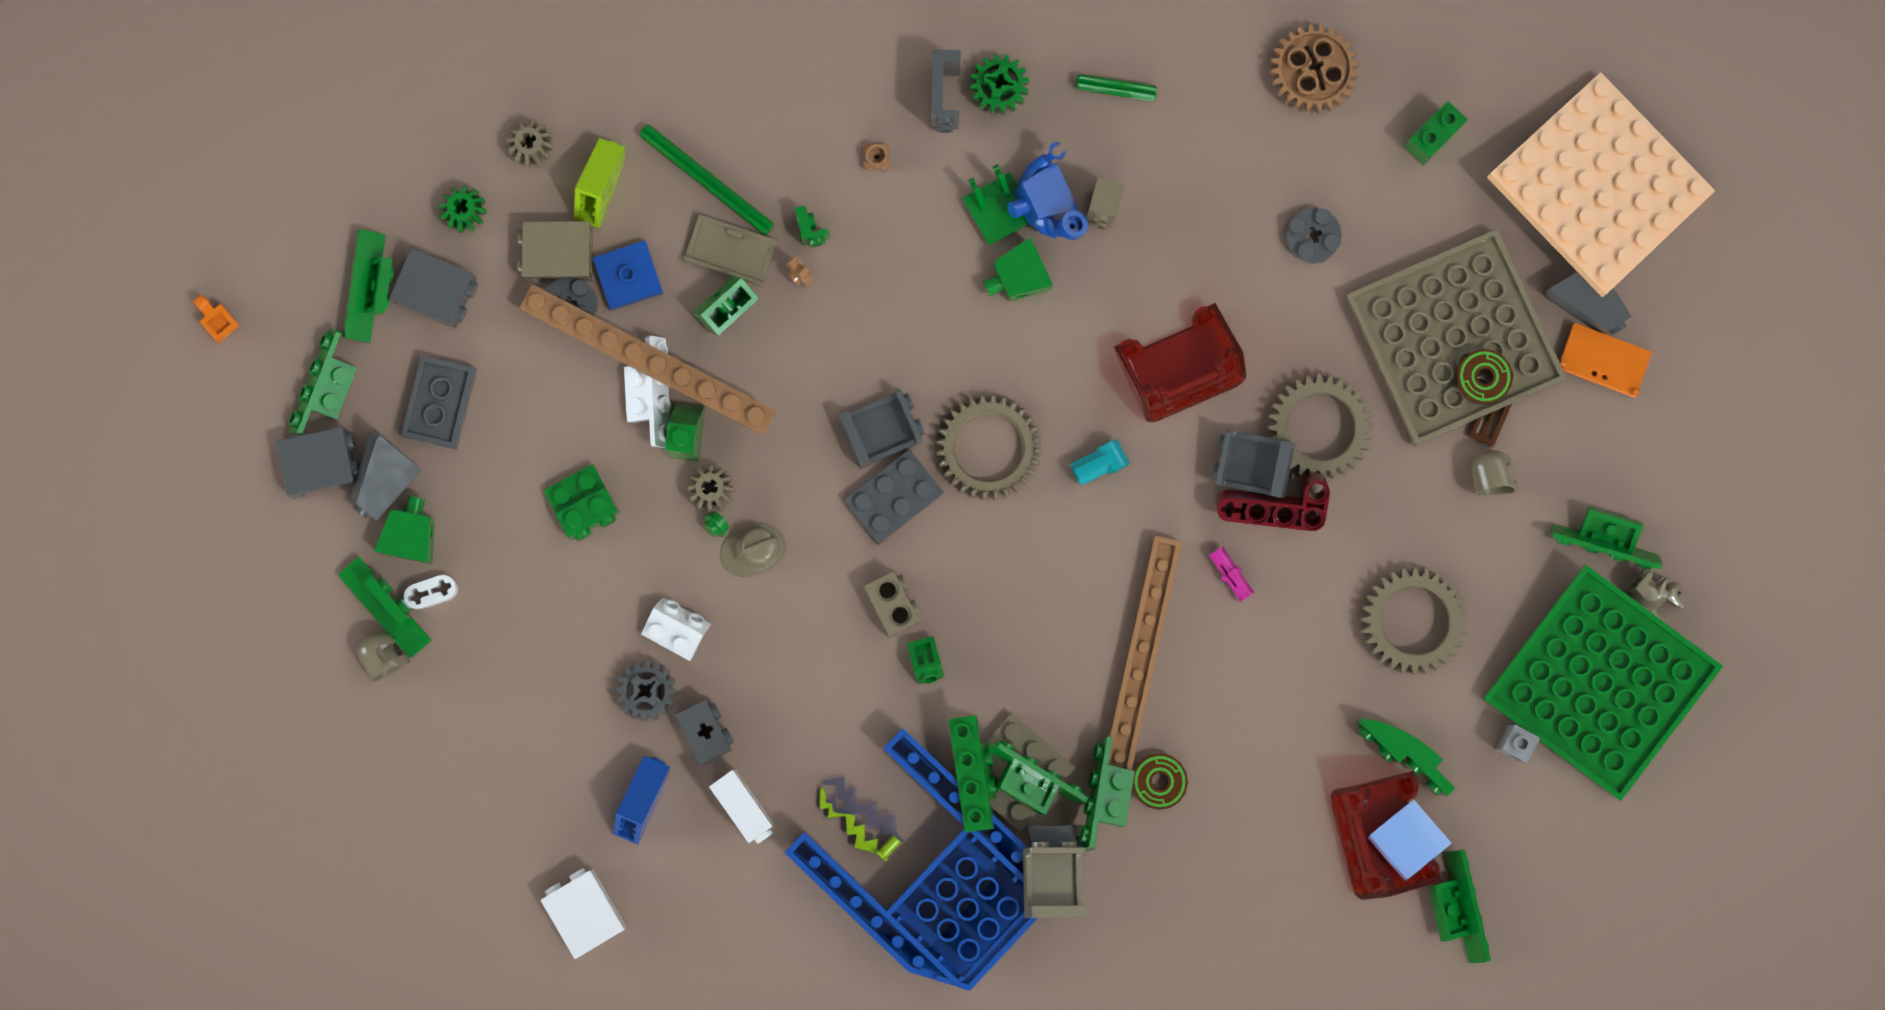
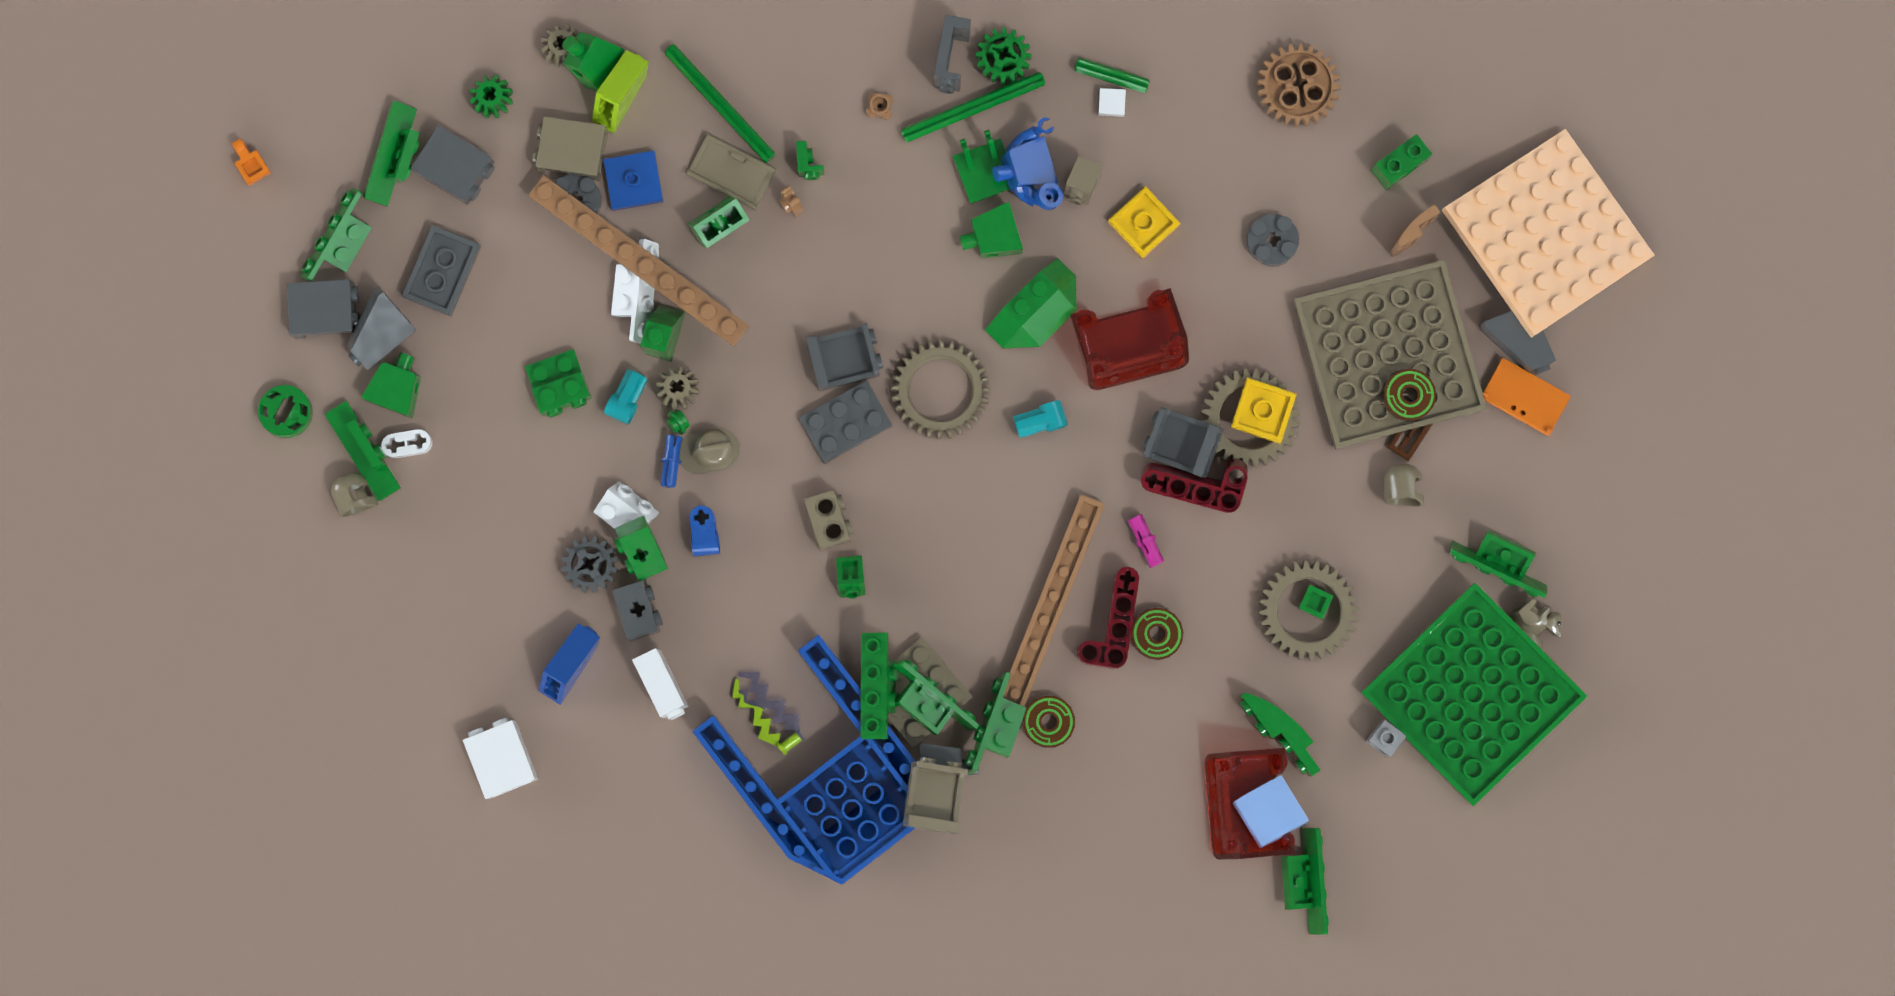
camera: 15 degrees right, 0 degrees up
(306, 582) = (295, 417): none -> green piece
(563, 153) = (590, 59): none -> green torso
(655, 512) = (623, 403): none -> teal piece
(694, 652) = (638, 535): none -> green brick
(715, 567) = (671, 461): none -> blue axle
(764, 642) = (704, 537): none -> blue piece
(975, 143) = (973, 107): none -> green axle
(1077, 347) = (1036, 309): none -> green wedge
(1121, 116) = (1112, 102): none -> white tile
(1174, 237) = (1143, 222): none -> yellow tile
(1213, 659) = (1115, 617): none -> dark red beam
(1275, 670) = (1172, 633): none -> reddish brown tile
(1333, 417) = (1263, 410): none -> yellow tile
(1420, 610) = (1315, 602): none -> green plate
(1461, 204) = (1413, 231): none -> medium nougat slope

